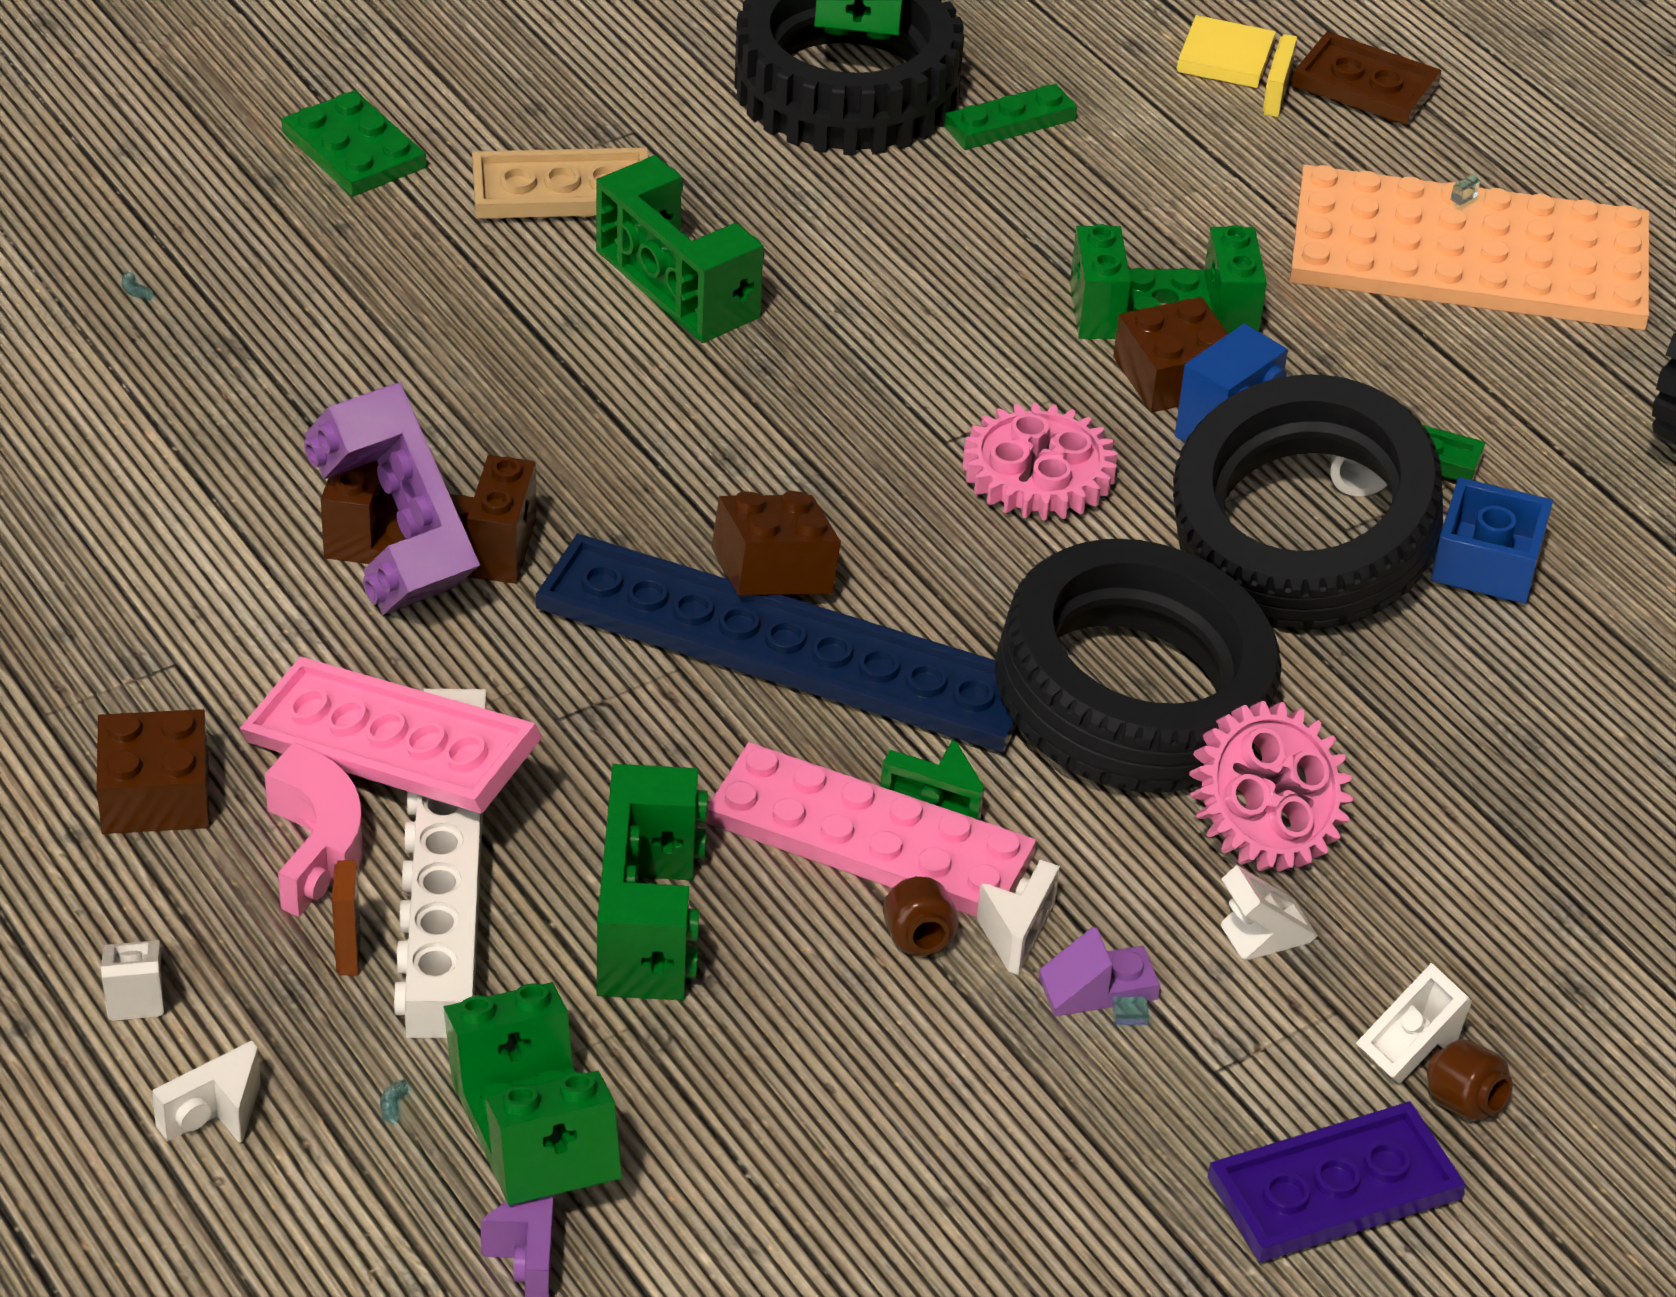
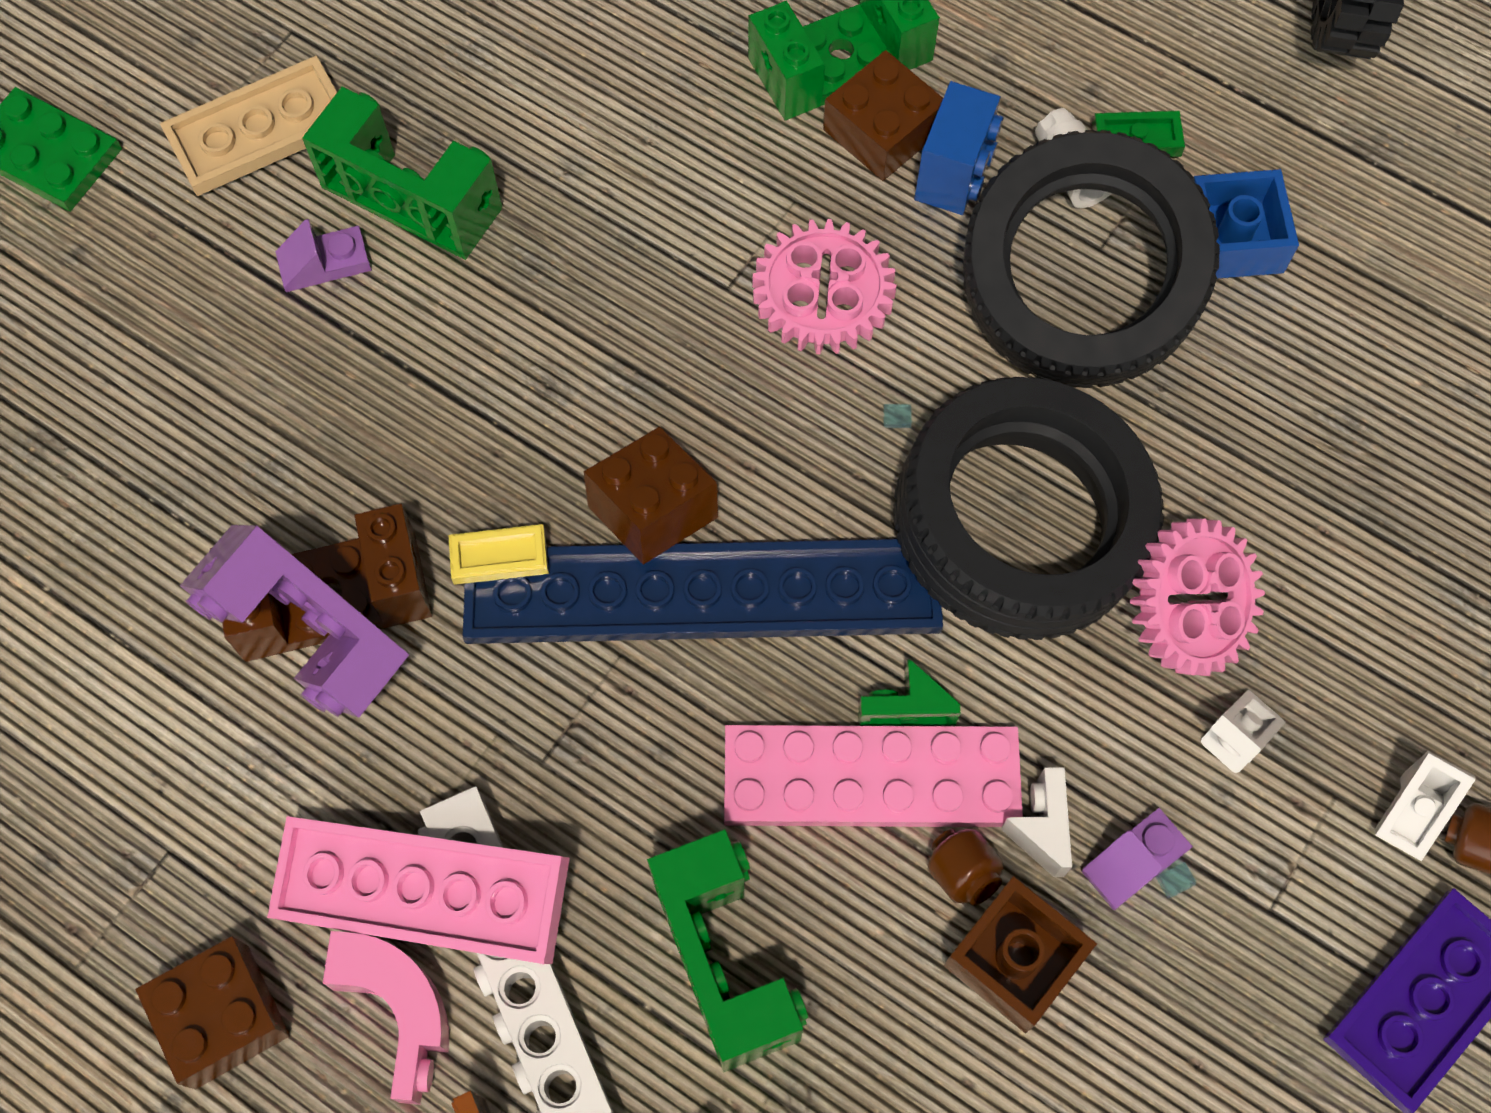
camera: 20 degrees left, 25 degrees up
(557, 295) = (315, 259): none -> medium lavender slope
(605, 542) = (498, 554): none -> light yellow tile
(932, 988) = (1020, 955): none -> reddish brown brick

